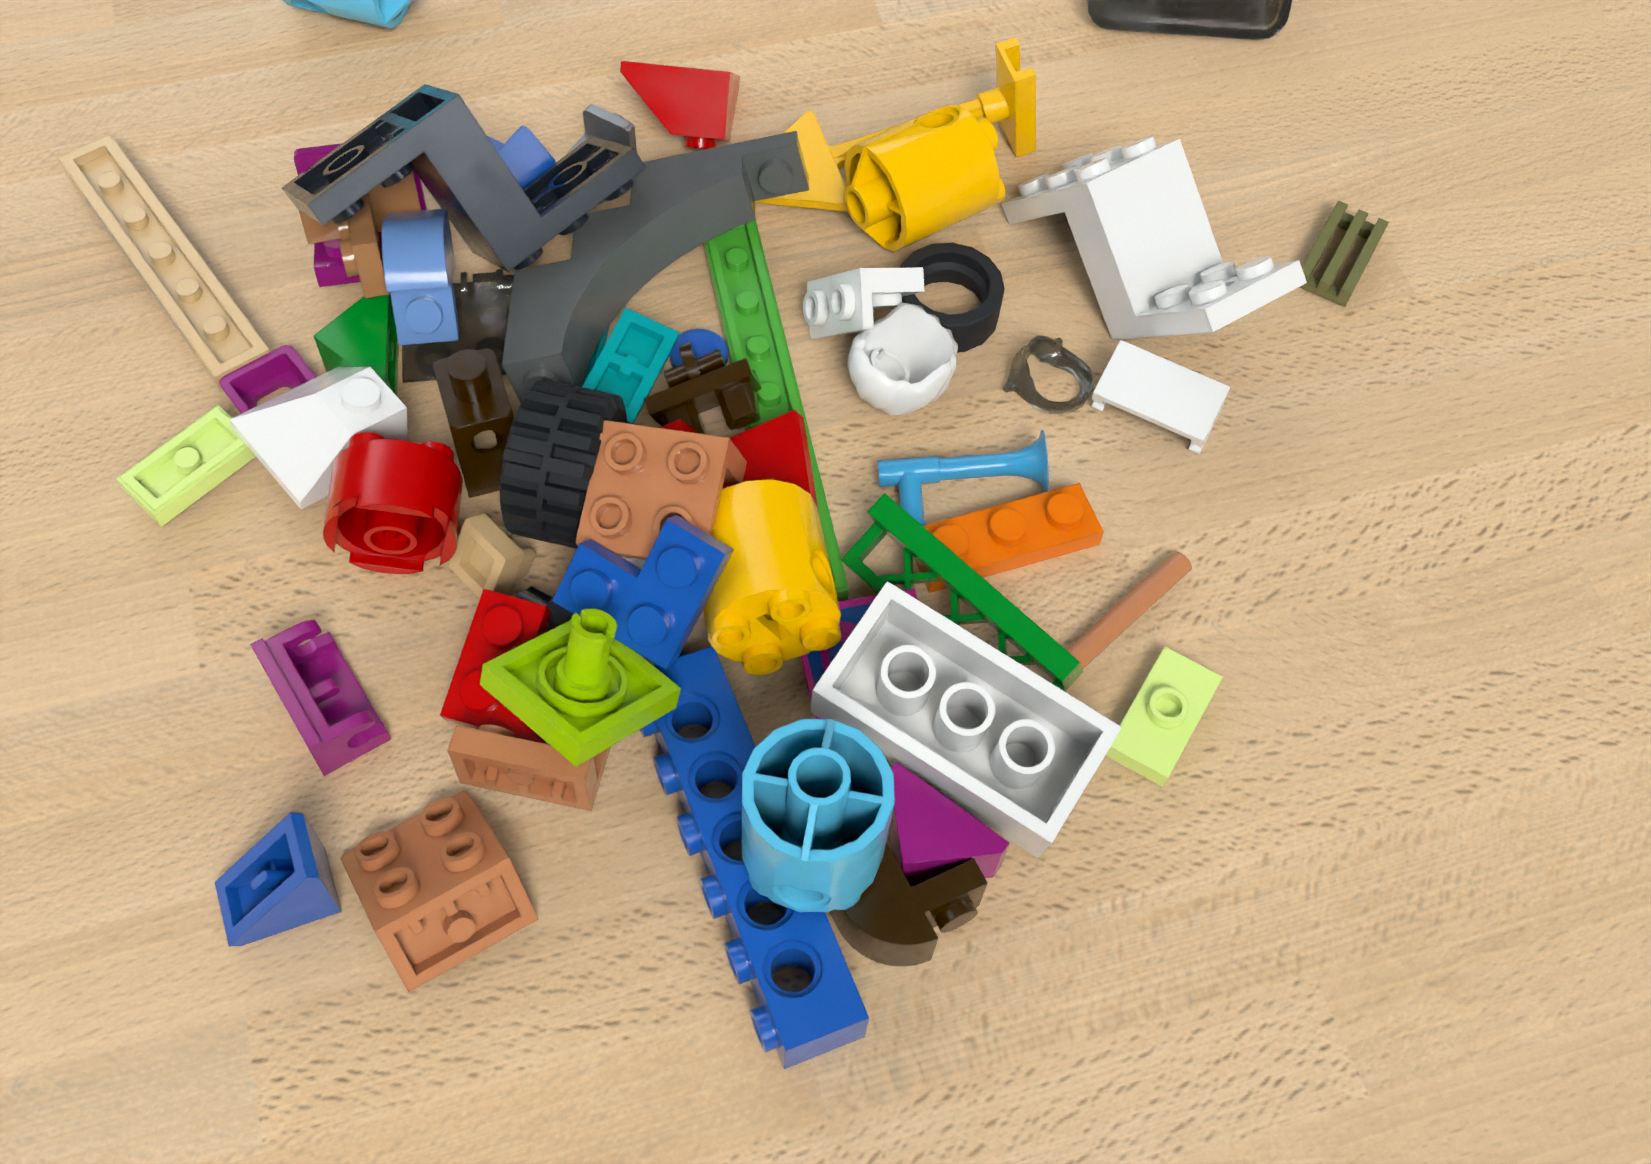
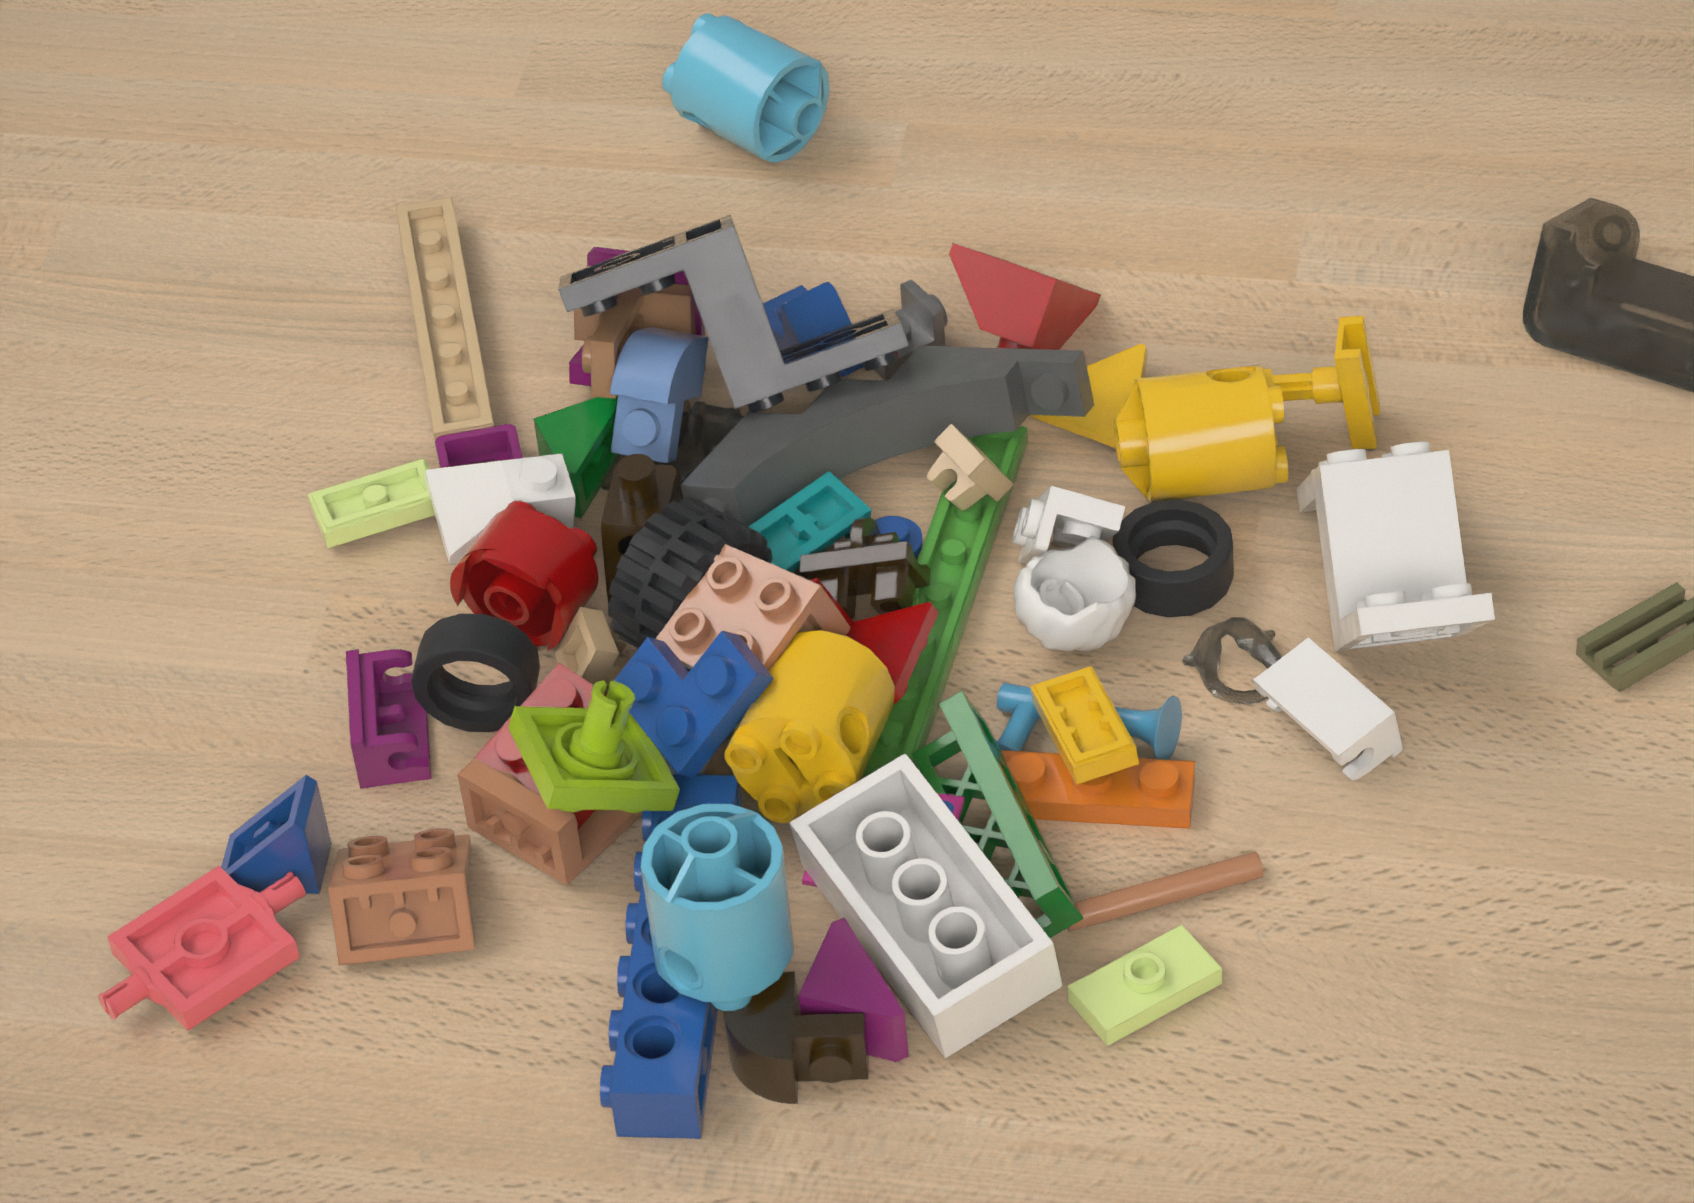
camera: 35 degrees right, 15 degrees down
(254, 1036) = (203, 947): none -> coral plate
(395, 621) = (478, 640): none -> black tyre
(739, 261) = (970, 467): none -> tan tile
(984, 484) = (1084, 725): none -> yellow plate

